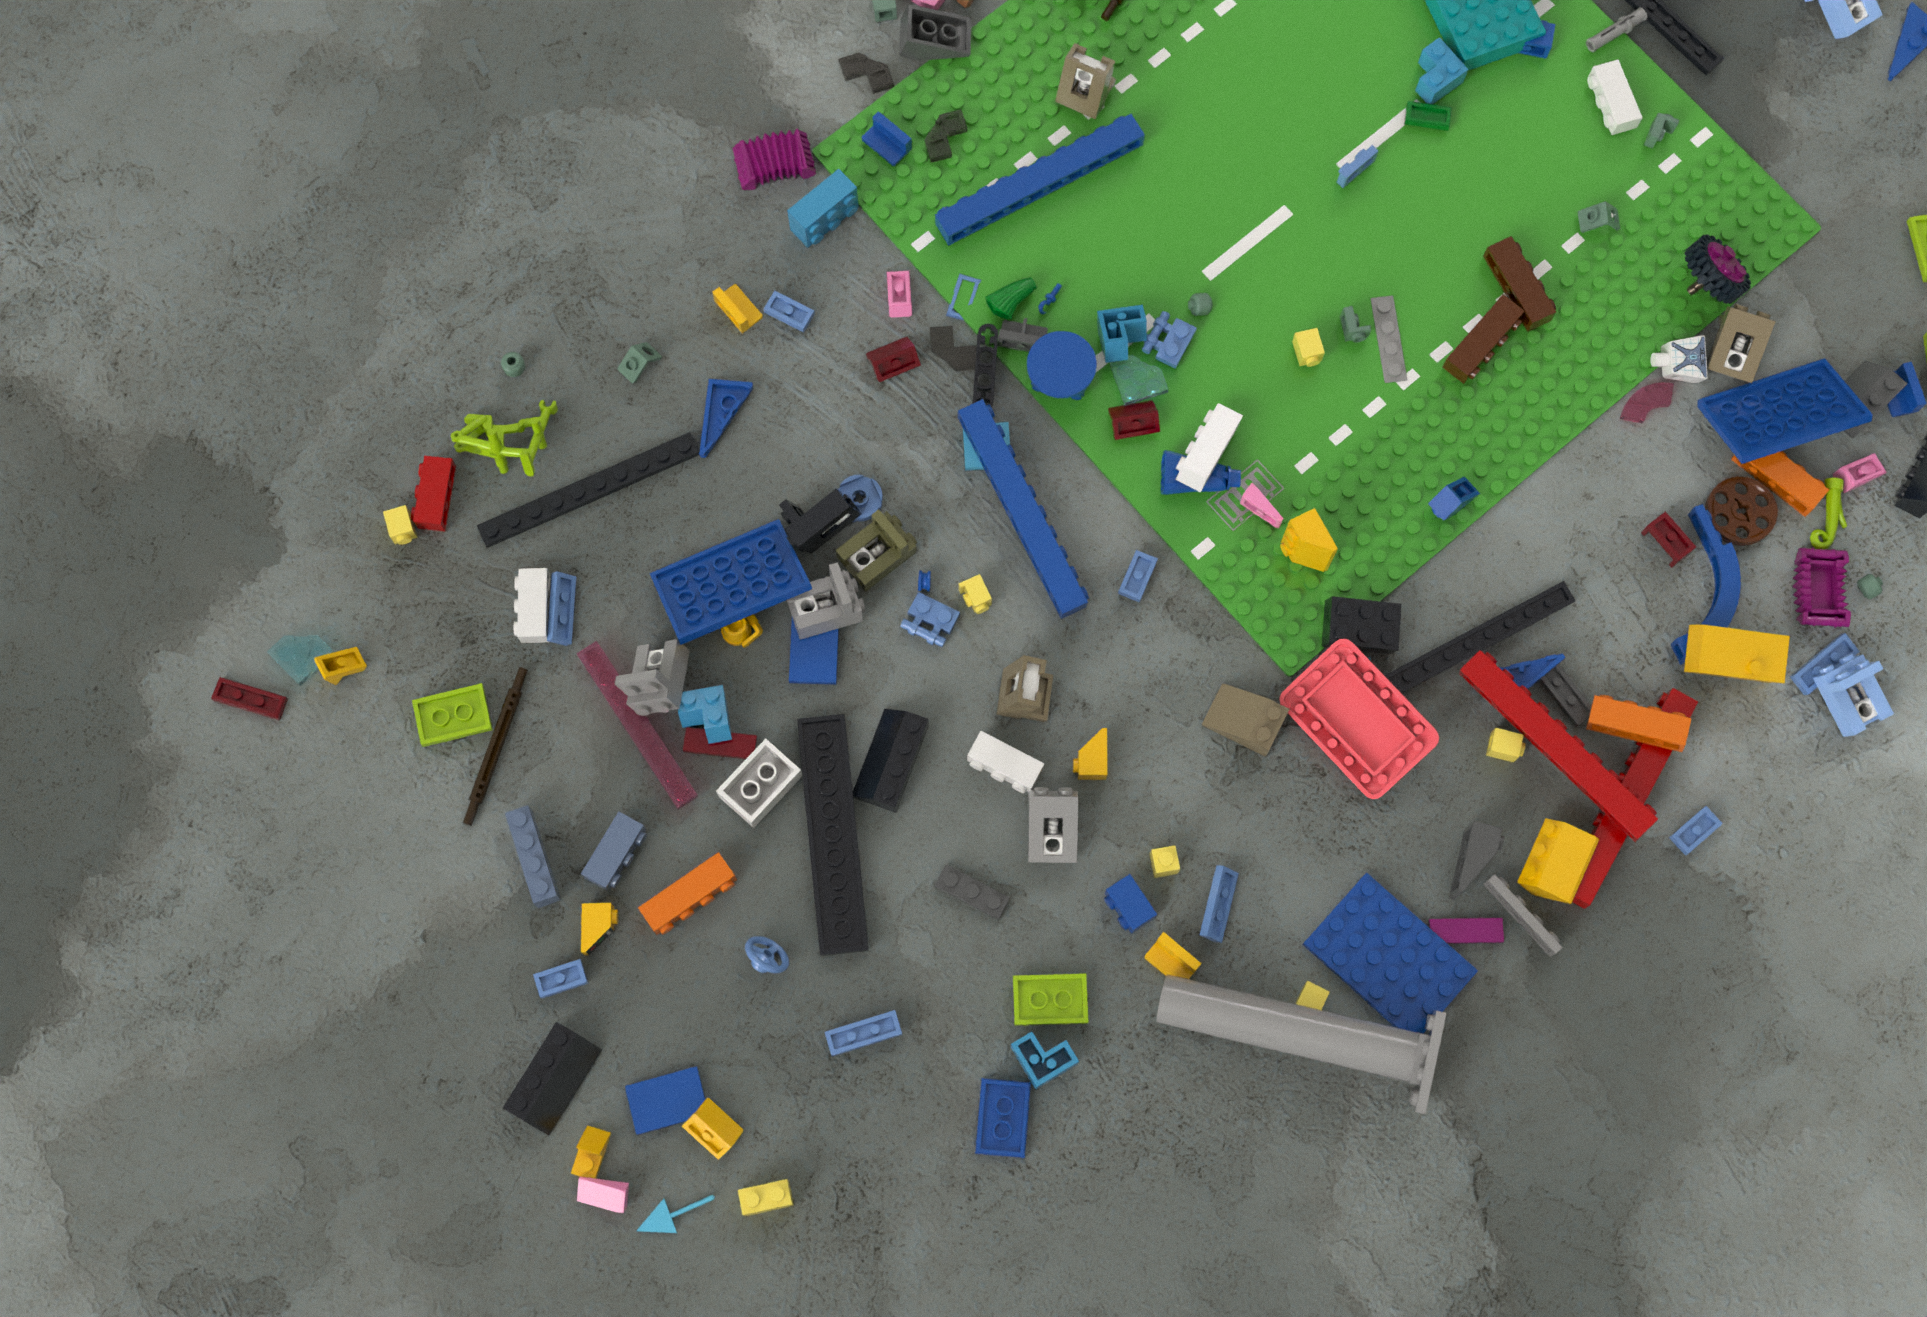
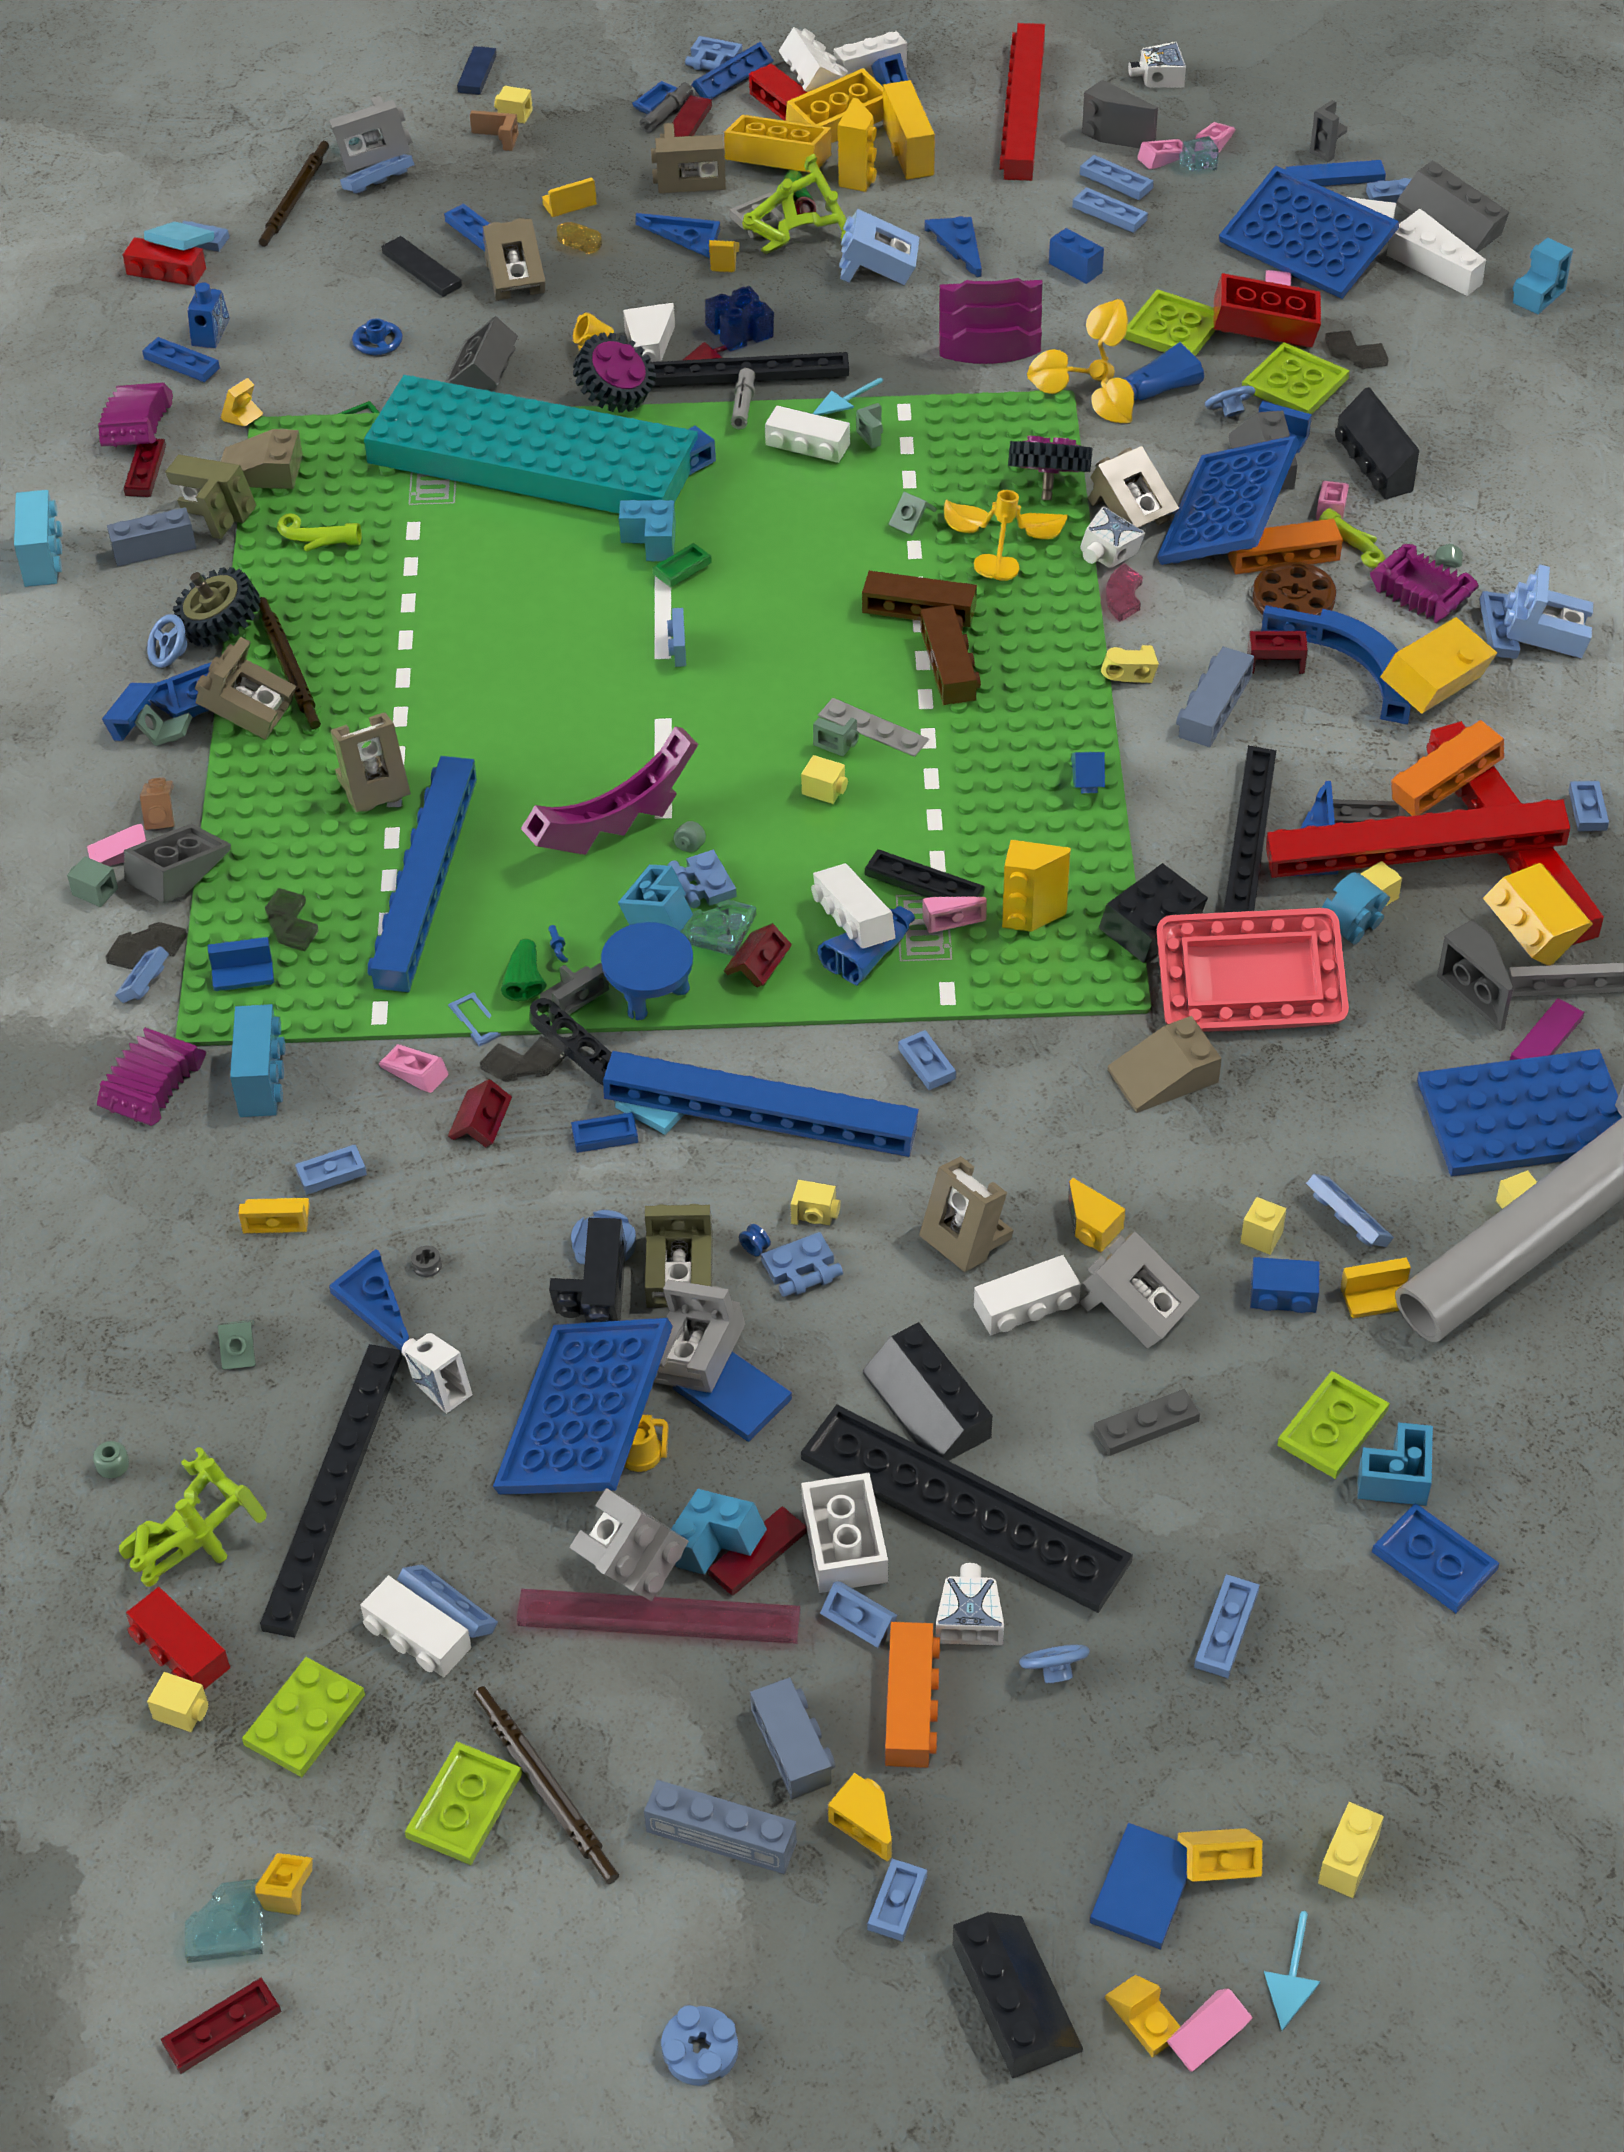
camera: 50 degrees left, 25 degrees down
(420, 946) = (709, 2063): none -> medium blue plate
(443, 592) = (303, 1716): none -> lime plate
(696, 483) = (430, 1361): none -> white torso
(717, 829) = (858, 1614): none -> medium blue plate
(766, 885) = (970, 1609): none -> white torso
(771, 408) = (434, 1264): none -> dark grey bush
(847, 89) = (146, 969): none -> medium blue plate
(938, 436) = (604, 1132): none -> blue tile
(1170, 247) = (647, 792): none -> magenta arch
(1278, 468) = (919, 878): none -> black tile
(1469, 743) = (1357, 906): none -> dark azure brick
(1575, 456) = (1130, 664): none -> light yellow leg
(1594, 529) = (1215, 696): none -> sand blue brick
(1628, 255) = (1006, 508): none -> yellow plant
(1666, 89) = (835, 403): none -> medium azure piece
(1826, 132) = (990, 320): none -> magenta slope
(1871, 214) = (1116, 397): none -> yellow plant
(1890, 276) = (1169, 371): none -> blue piece
(1898, 339) = (1231, 400): none -> medium blue piece

